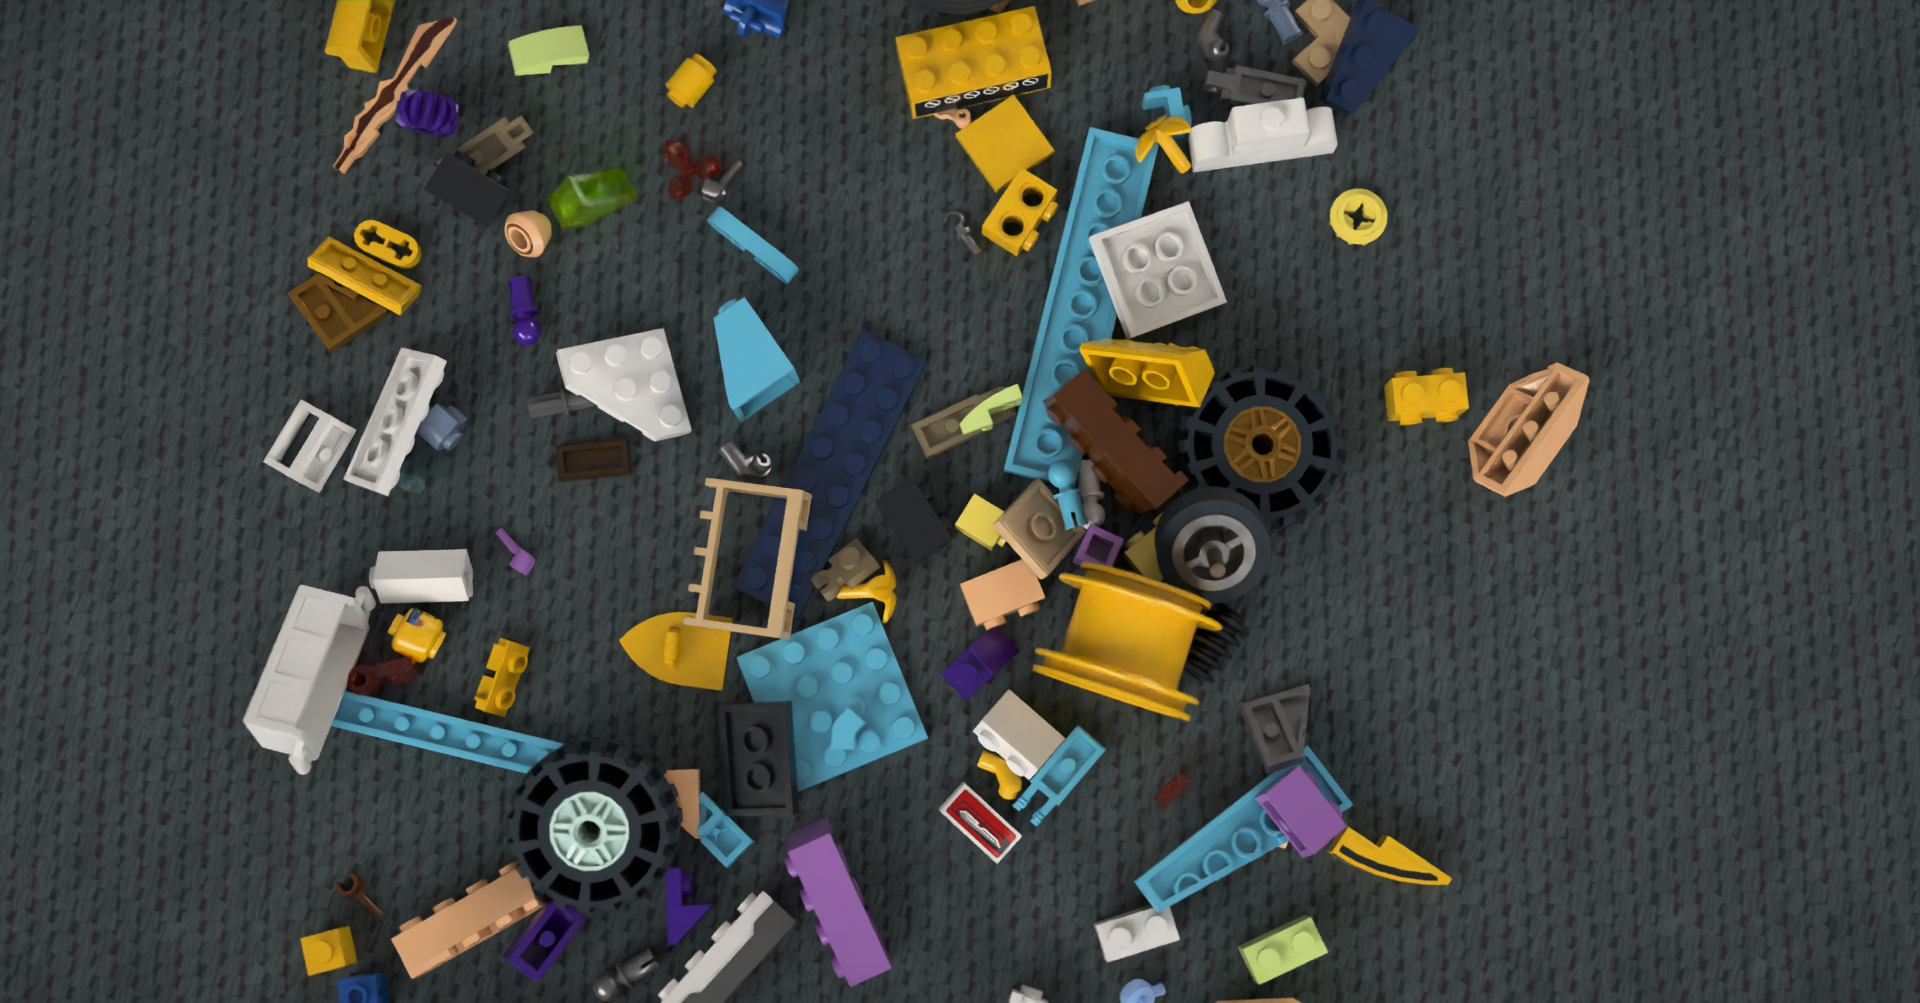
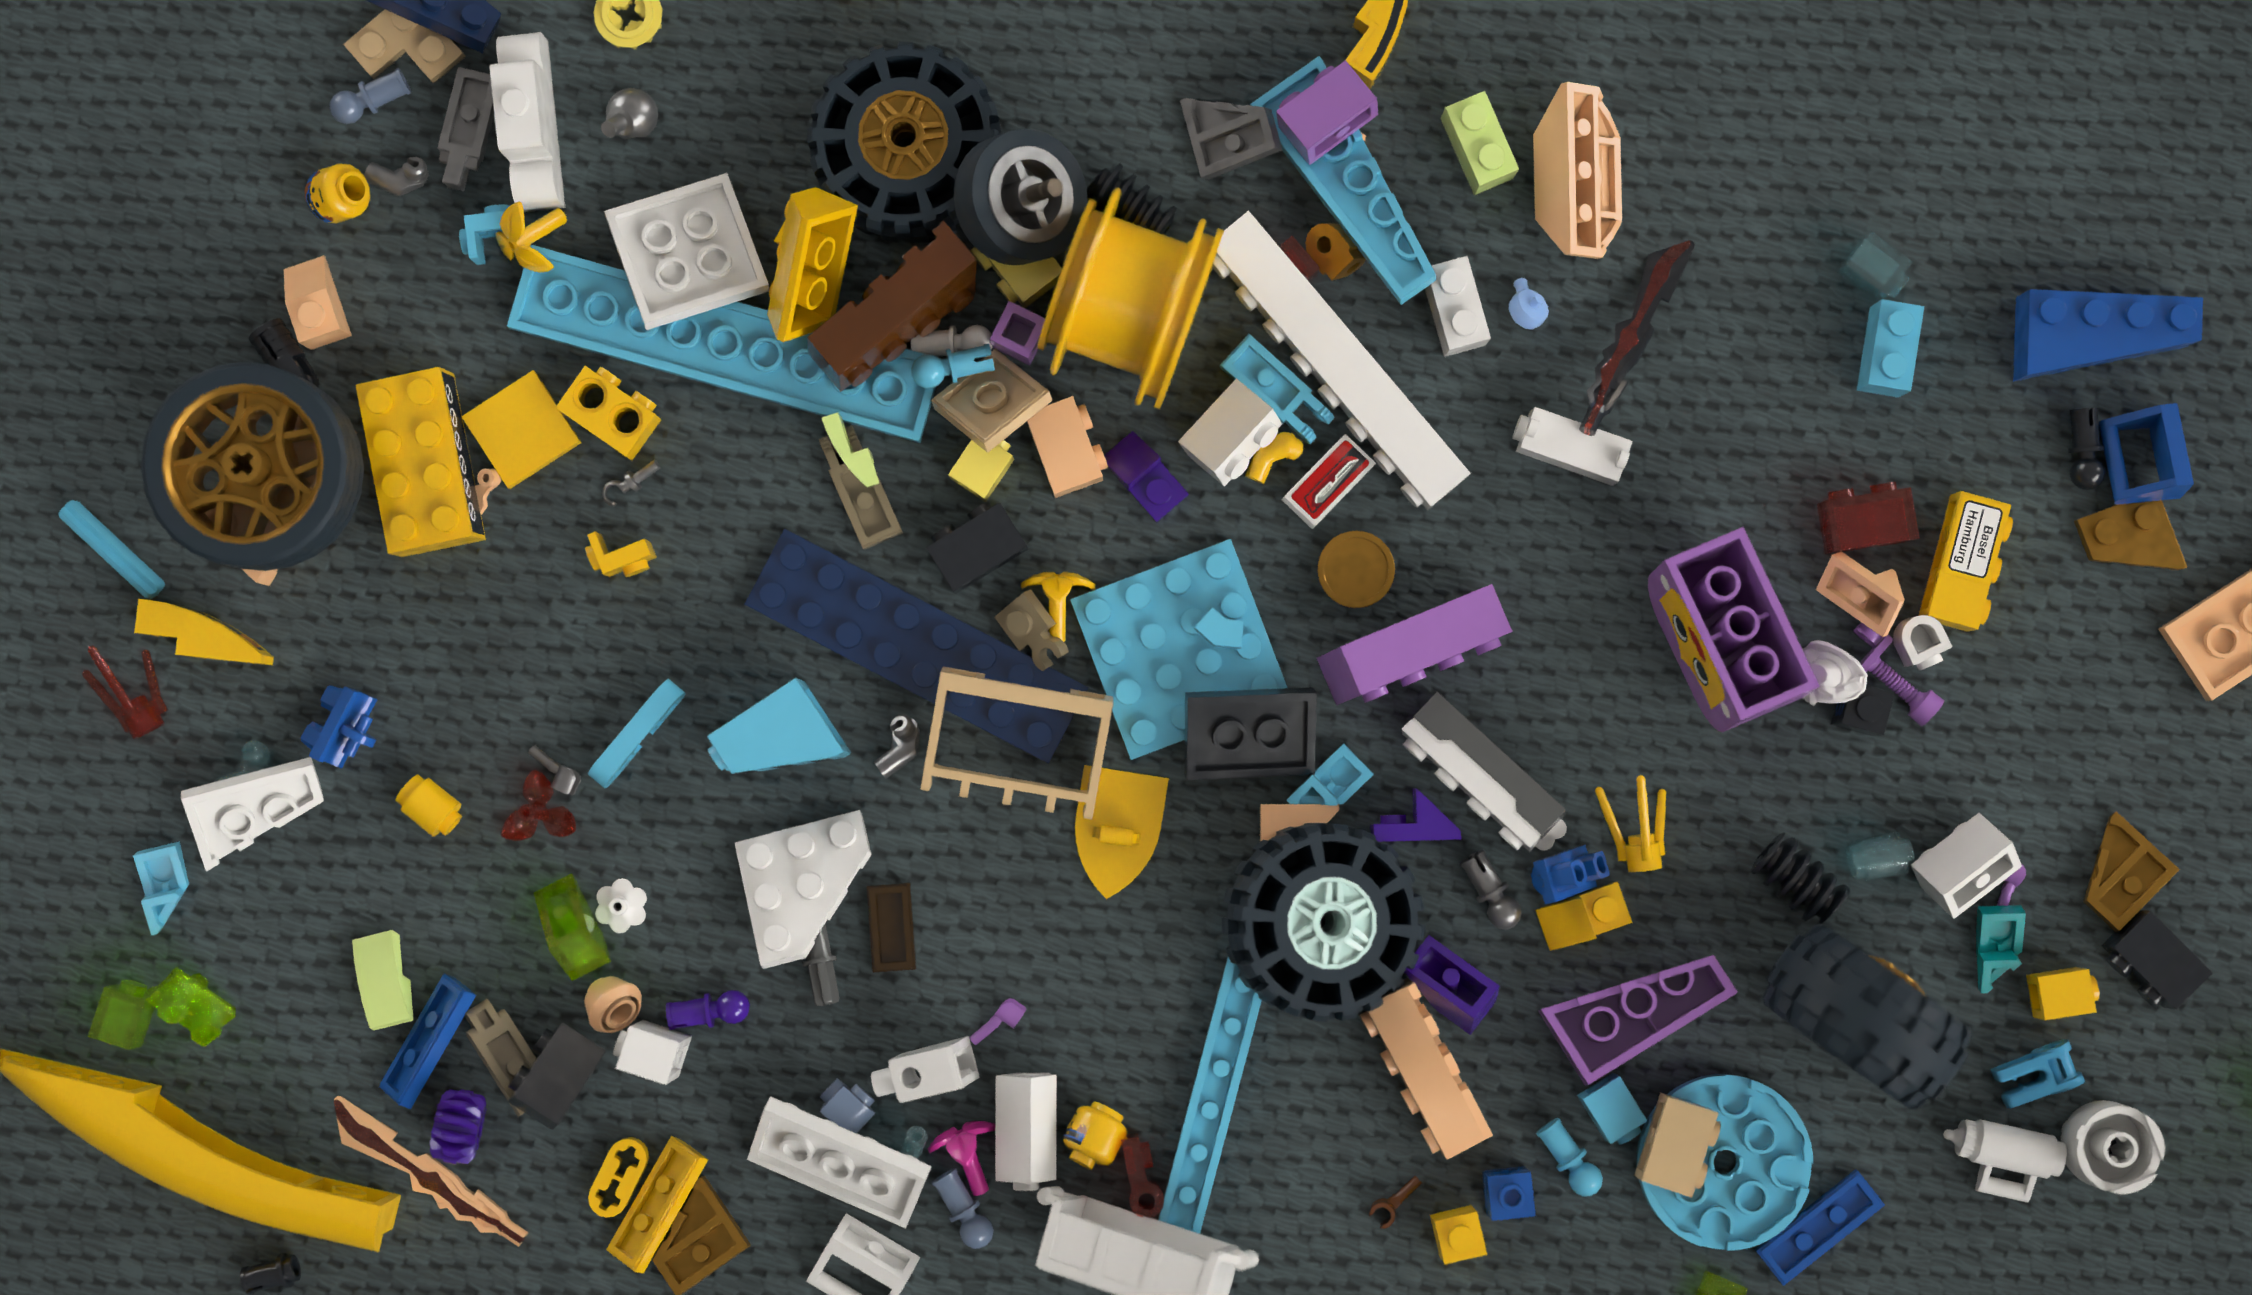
camera: 90 degrees left, 5 degrees up
(341, 537) = (975, 1229): none -> sand blue pin
(405, 523) = (962, 1148): none -> dark pink plant
(470, 494) = (940, 1066): none -> white torso
(486, 264) = (651, 1051): none -> white brick
(498, 693) = (1129, 1027): yellow hinge -> none
(499, 87) = (427, 1041): none -> blue tile
(617, 244) = (632, 905): none -> white plant
(897, 233) = (628, 559): none -> yellow bracket
(903, 848) = (1356, 569): none -> pearl gold piece
(1083, 829) = (1338, 362): none -> white brick
(1180, 820) = (1333, 251): none -> pearl gold piece
(1272, 220) = (630, 114): none -> flat silver piece

